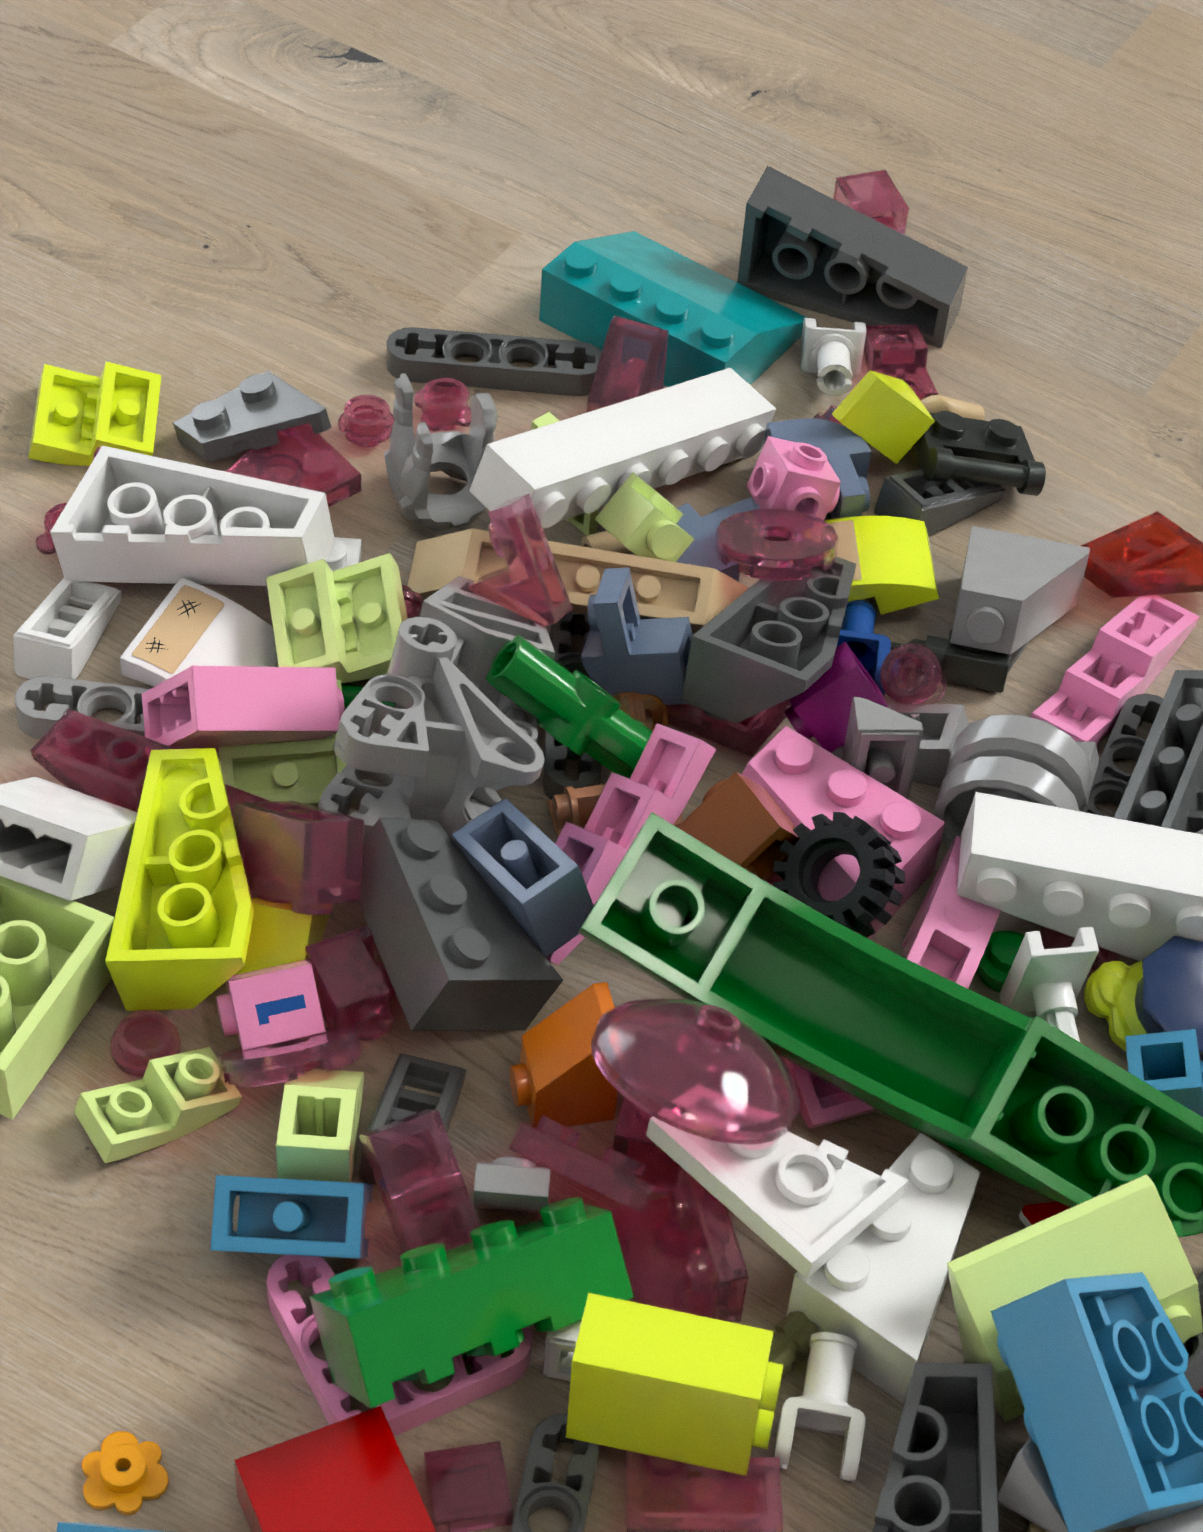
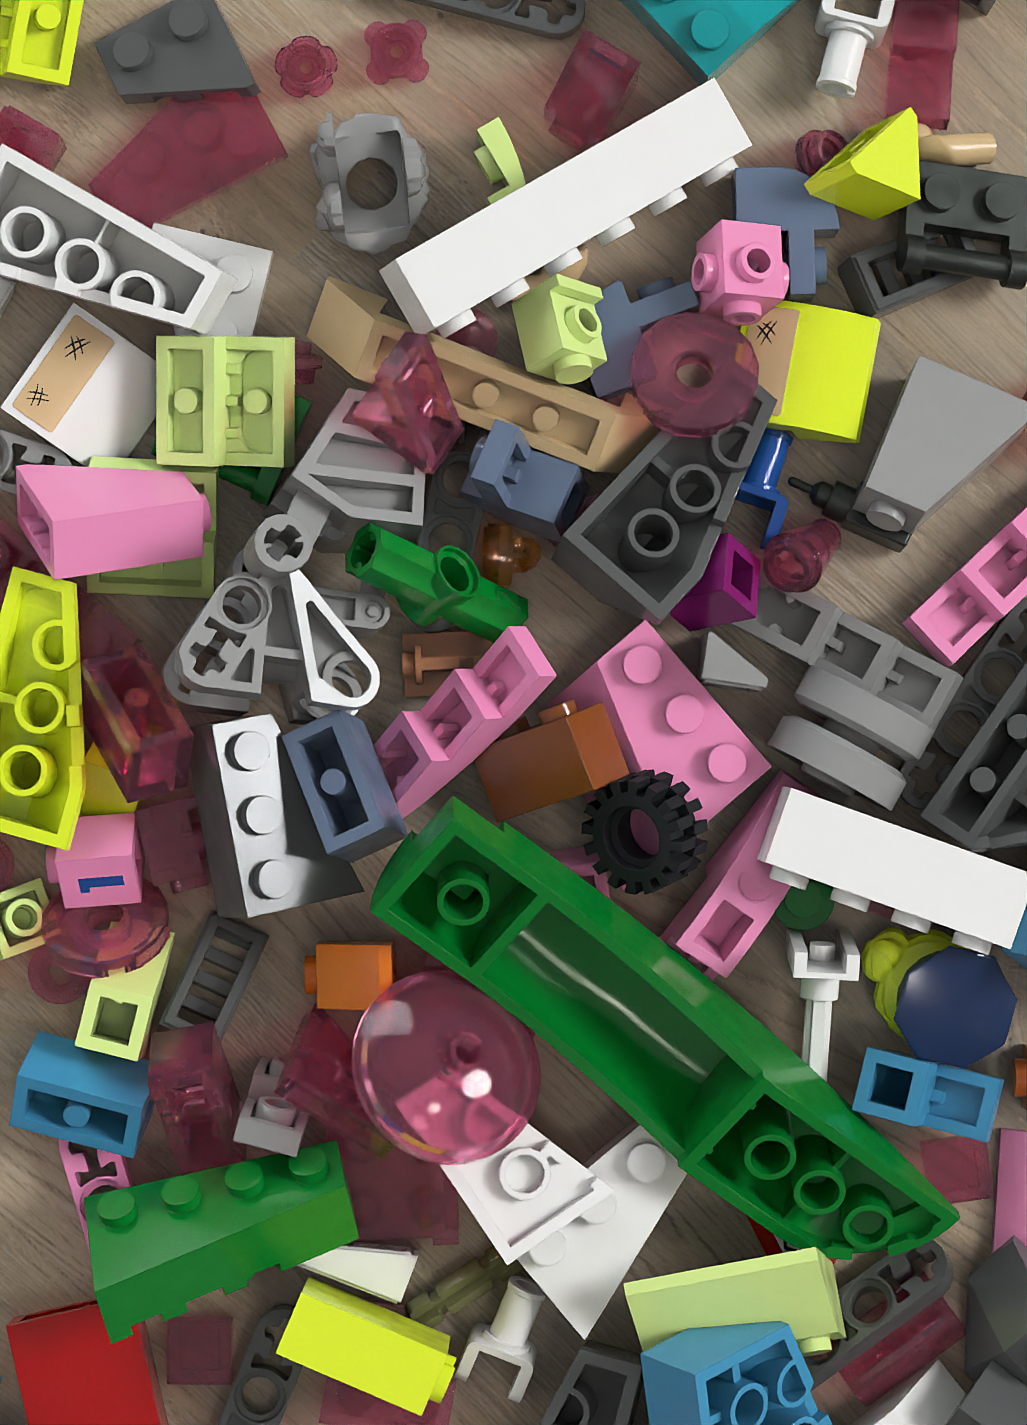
camera: 15 degrees right, 40 degrees up
(238, 1113) = (46, 987): none -> clear pink plate

